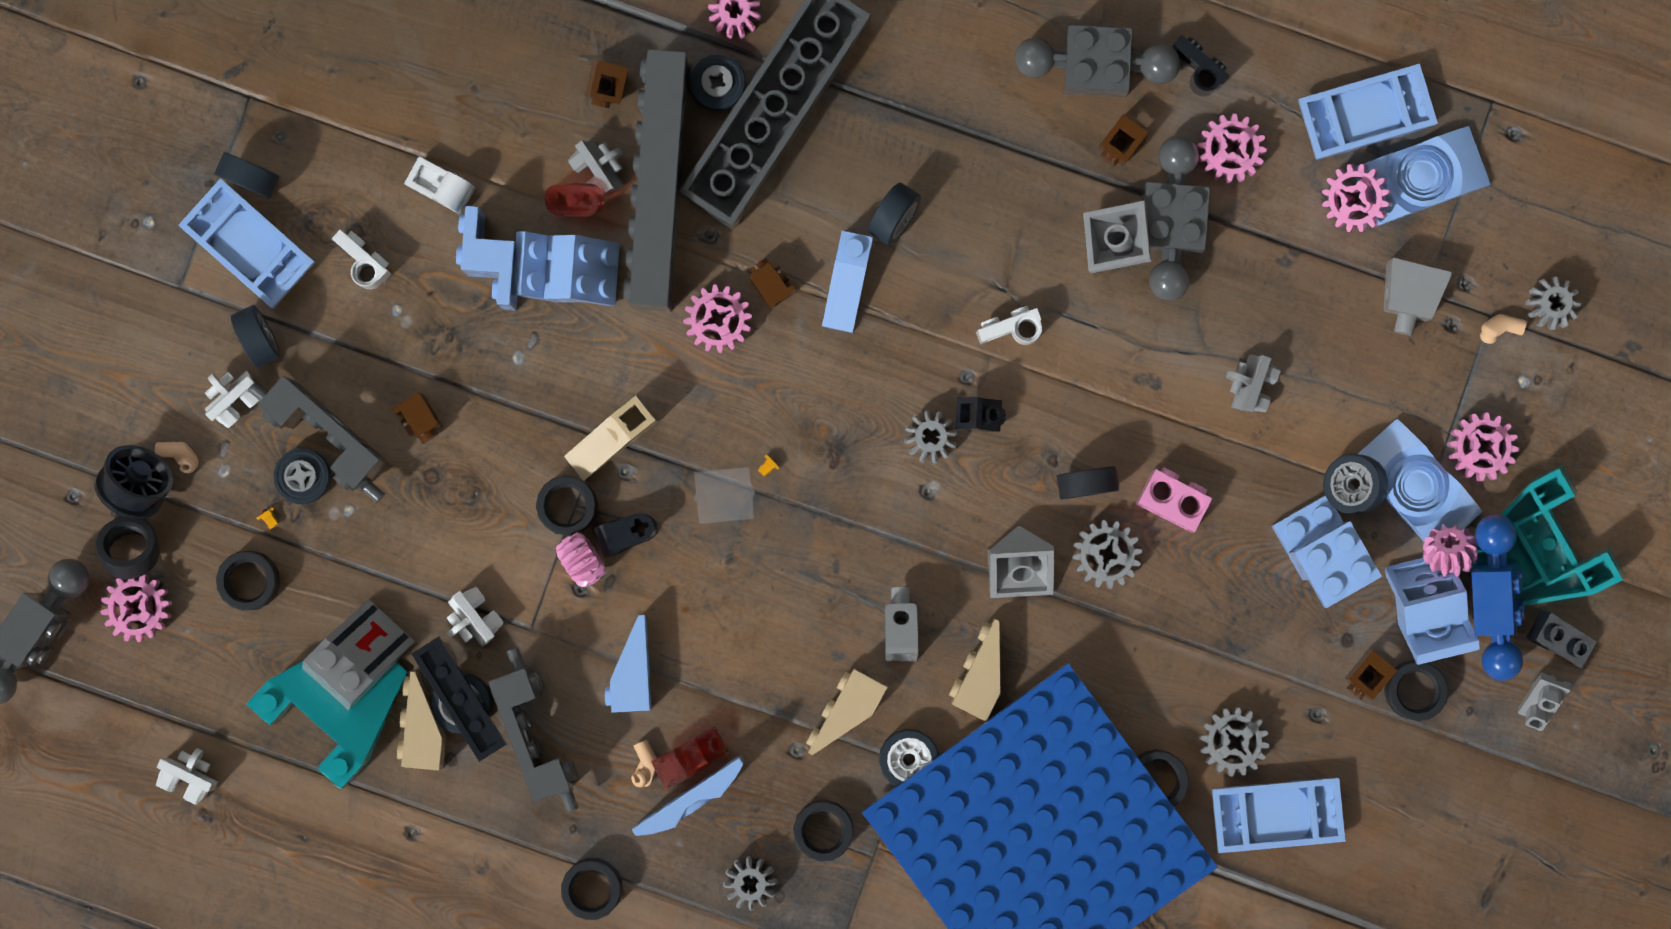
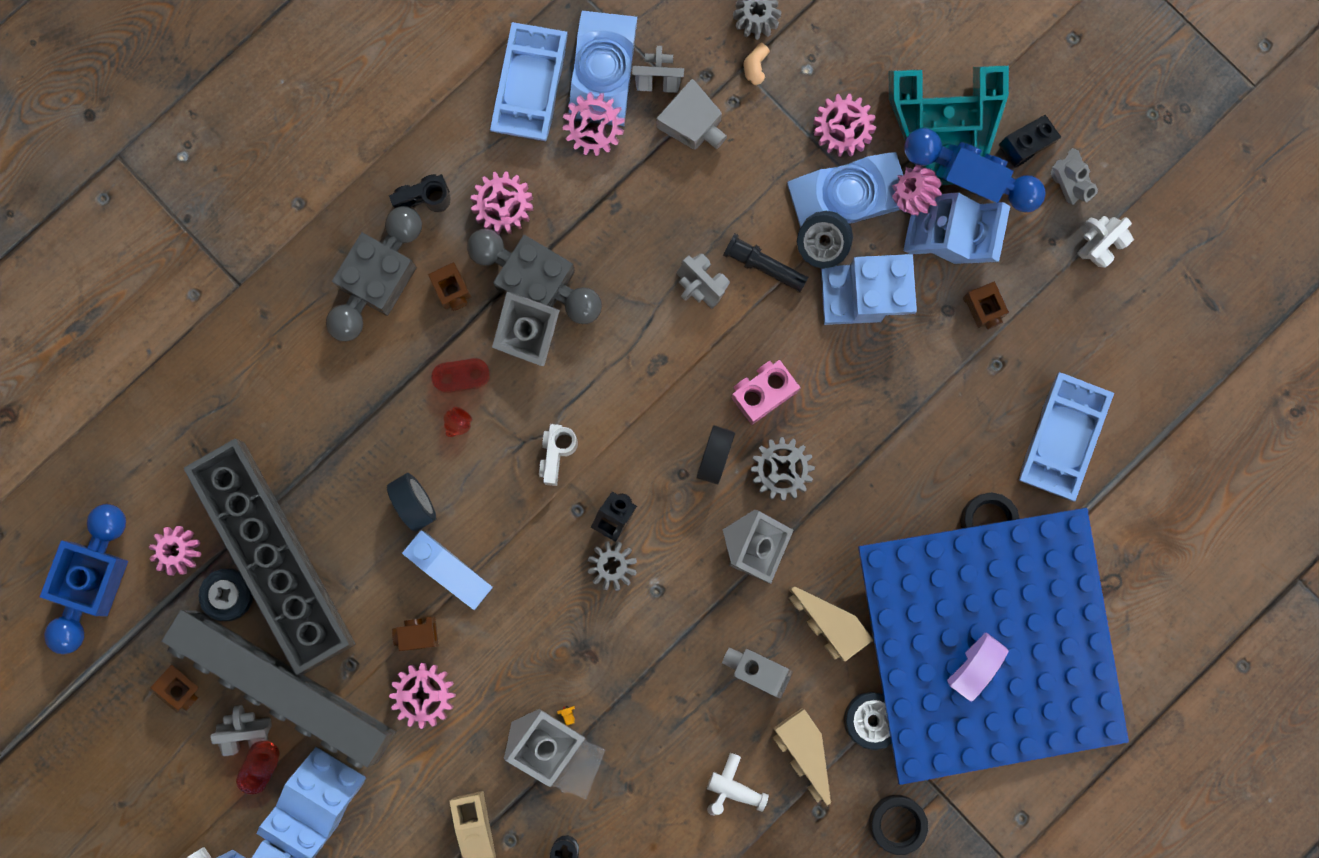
camera: 65 degrees left, 5 degrees down
(728, 455) = (541, 746): none -> light grey slope
(777, 659) = (727, 787): none -> white piece
(993, 216) = (457, 422): none -> clear red plate
(1010, 834) = (982, 664): none -> lavender slope
(1038, 198) = (461, 375): none -> clear red plate
(1245, 732) = (991, 453): light grey gear -> none
(1302, 423) = (753, 257): none -> black pin
(1435, 222) = (645, 74): none -> light grey hips
(1436, 704) = (1029, 258): black tyre -> none
(1500, 756) = (1101, 236): none -> white hips

